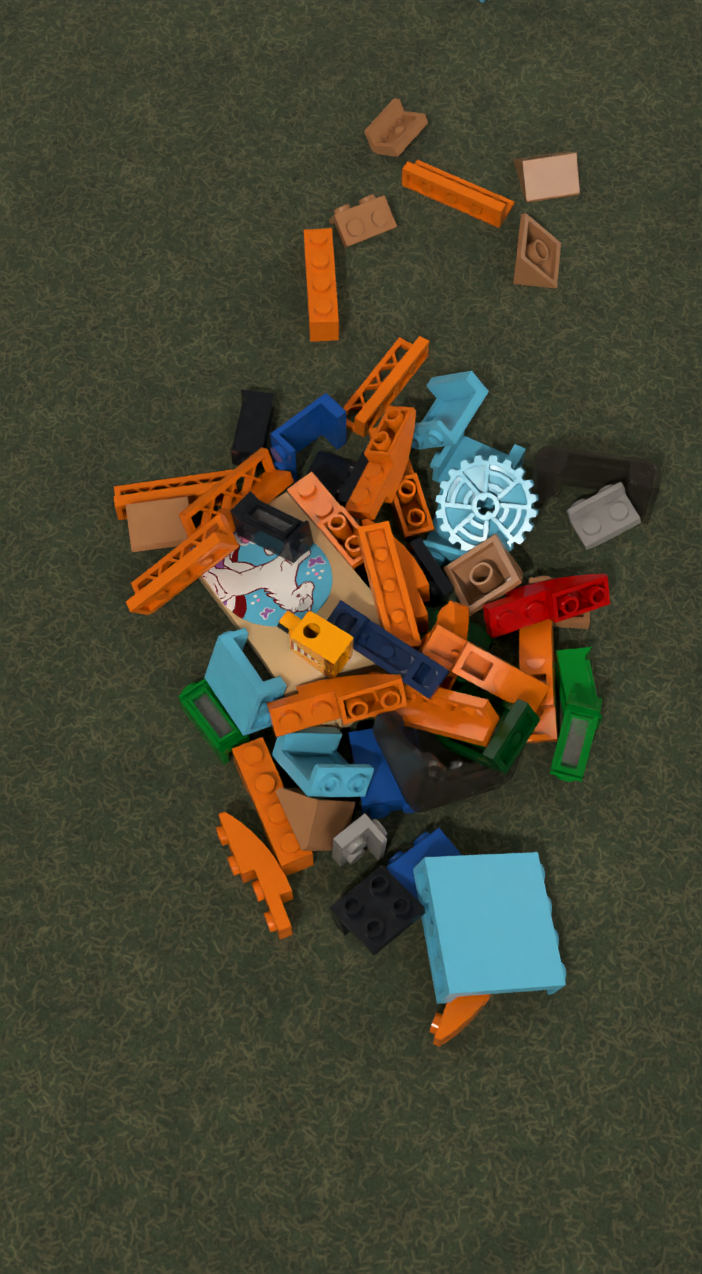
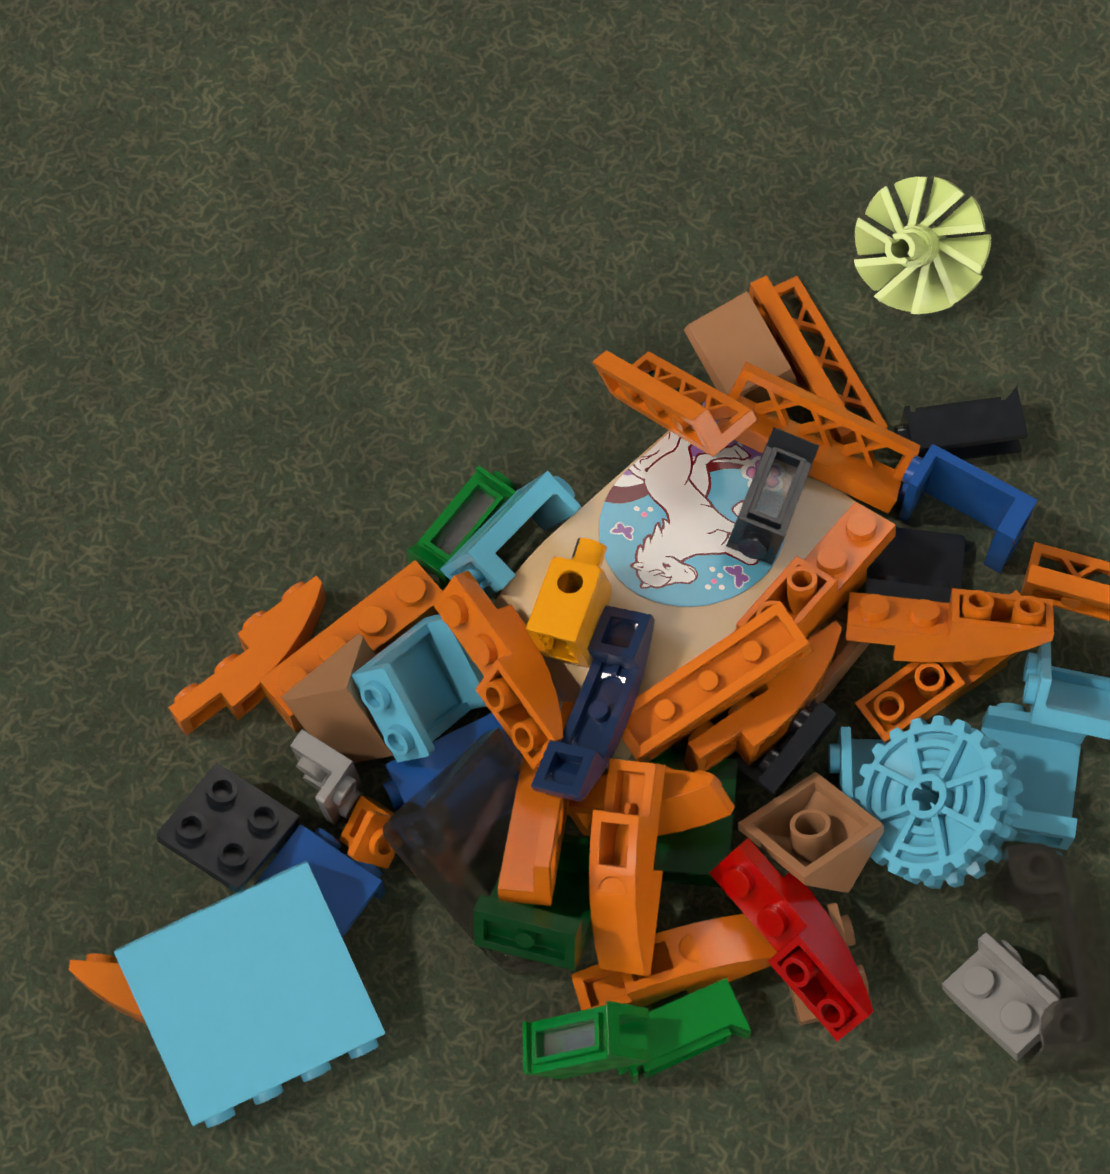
camera: 75 degrees right, 5 degrees up
(121, 391) = (934, 267): none -> yellowish green piece
(404, 827) = (365, 833): none -> orange bracket

